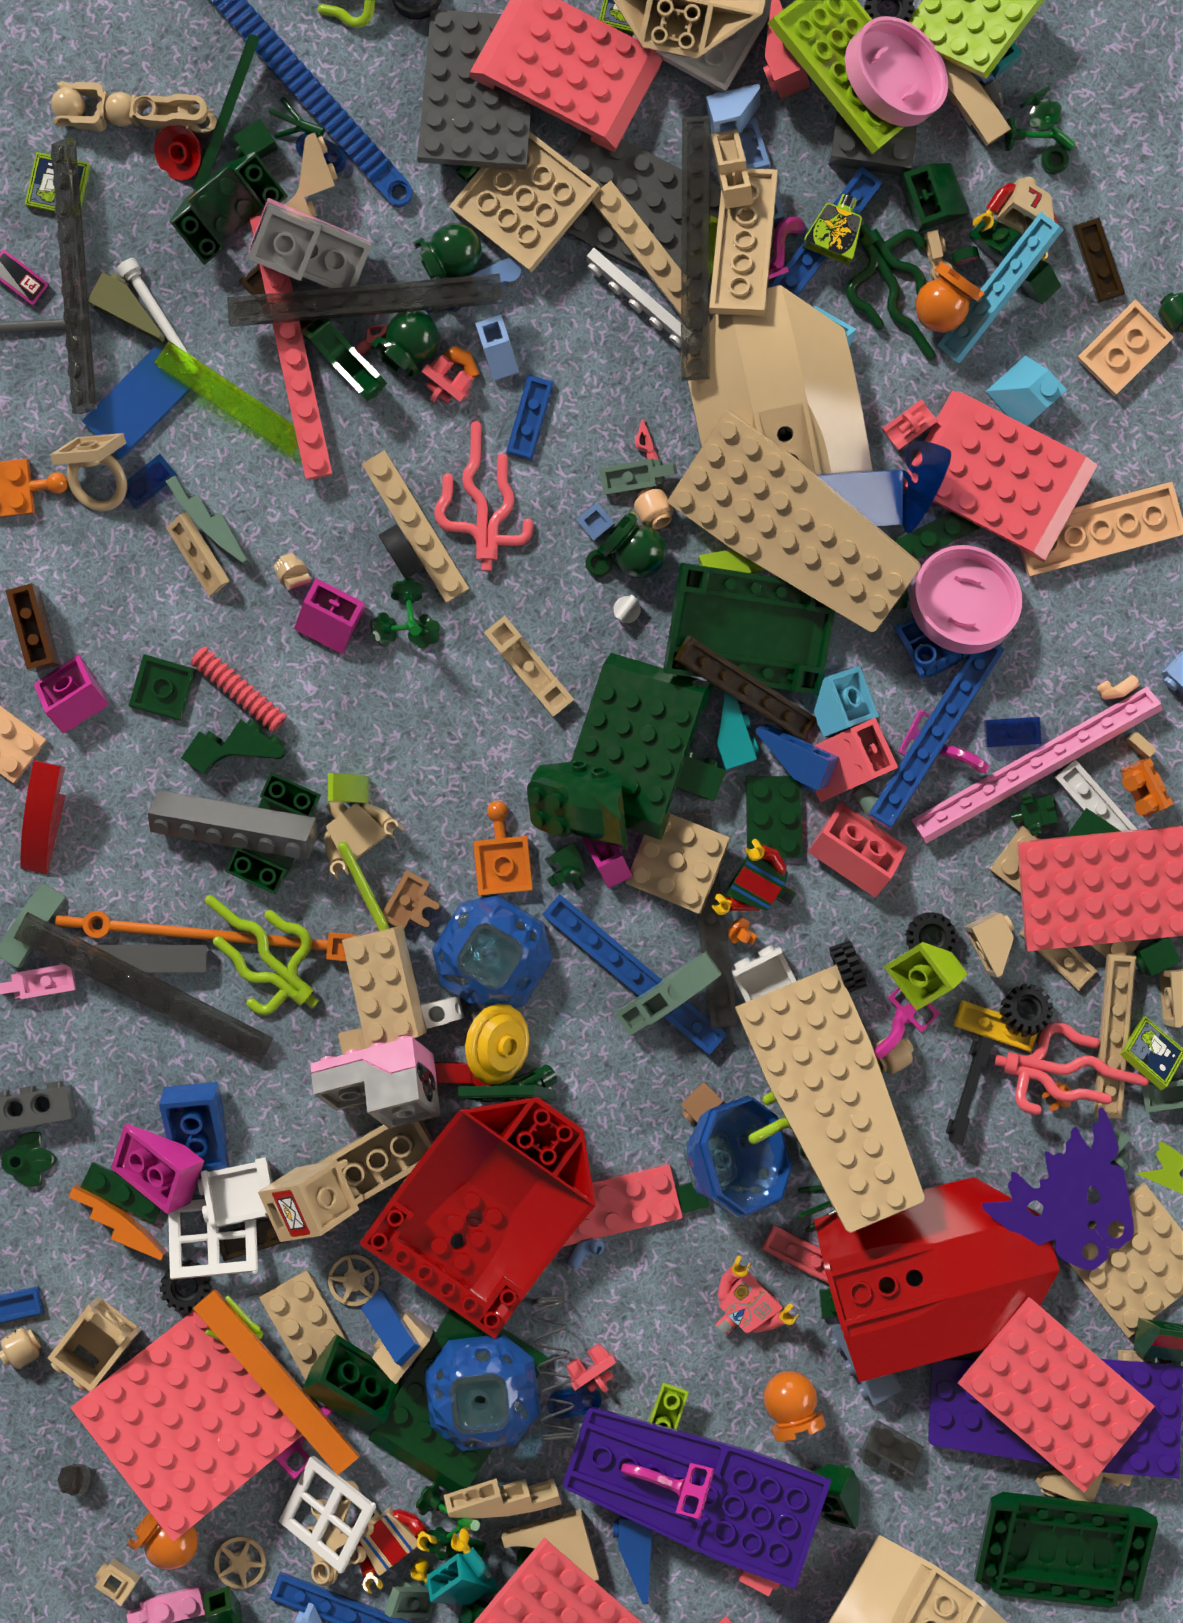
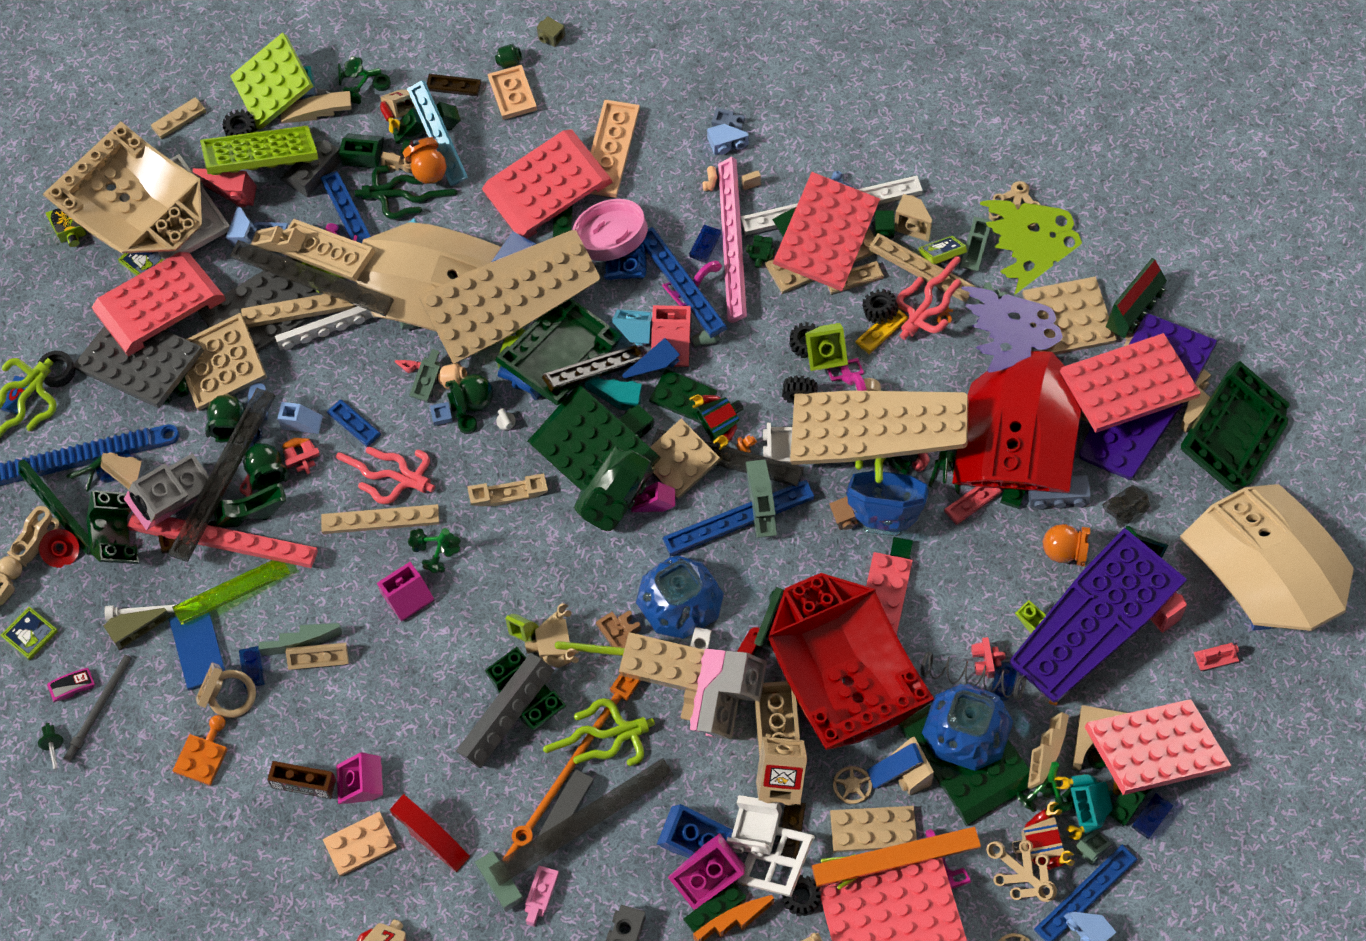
camera: 60 degrees left, 25 degrees down
(73, 276) = (94, 645): clear smoke plate -> none
(162, 687) = (389, 721): dark green tile -> none
(238, 689) = (419, 672): coral piece -> none
(243, 741) = (456, 682): dark green arch -> none
(254, 139) = (80, 500): dark green brick -> none
(291, 571) = (363, 604): tan piece -> none
(327, 1515) = (1005, 868): white window -> none
(351, 1384) = (923, 811): dark green slope -> none
(401, 551) = (390, 529): black tyre -> none
(497, 1044) = (738, 613): yellow piece -> none
(502, 862) = (622, 563): orange plate -> none
(568, 867) = (648, 525): dark green piece -> none
(583, 1249) = (903, 628): medium blue arm -> none
(635, 1548) = (1121, 685): blue slope -> none
(682, 1487) = (1087, 620): dark pink piece -> none
(749, 1303) = (987, 543): coral torso -> none
(835, 231) = (350, 203): torso -> none
(858, 849) = (730, 357): coral slope -> none
(896, 71) = (279, 128): bright pink brick -> none
(909, 425) = (488, 217): coral hips -> none
(930, 477) = (524, 212): clear blue piece -> none
(958, 1127) = (933, 374): black container -> none
(992, 941) = (827, 304): tan slope -> none
(1026, 391) = (505, 148): medium azure slope -> none
(1145, 787) = (777, 182): orange hips -> none

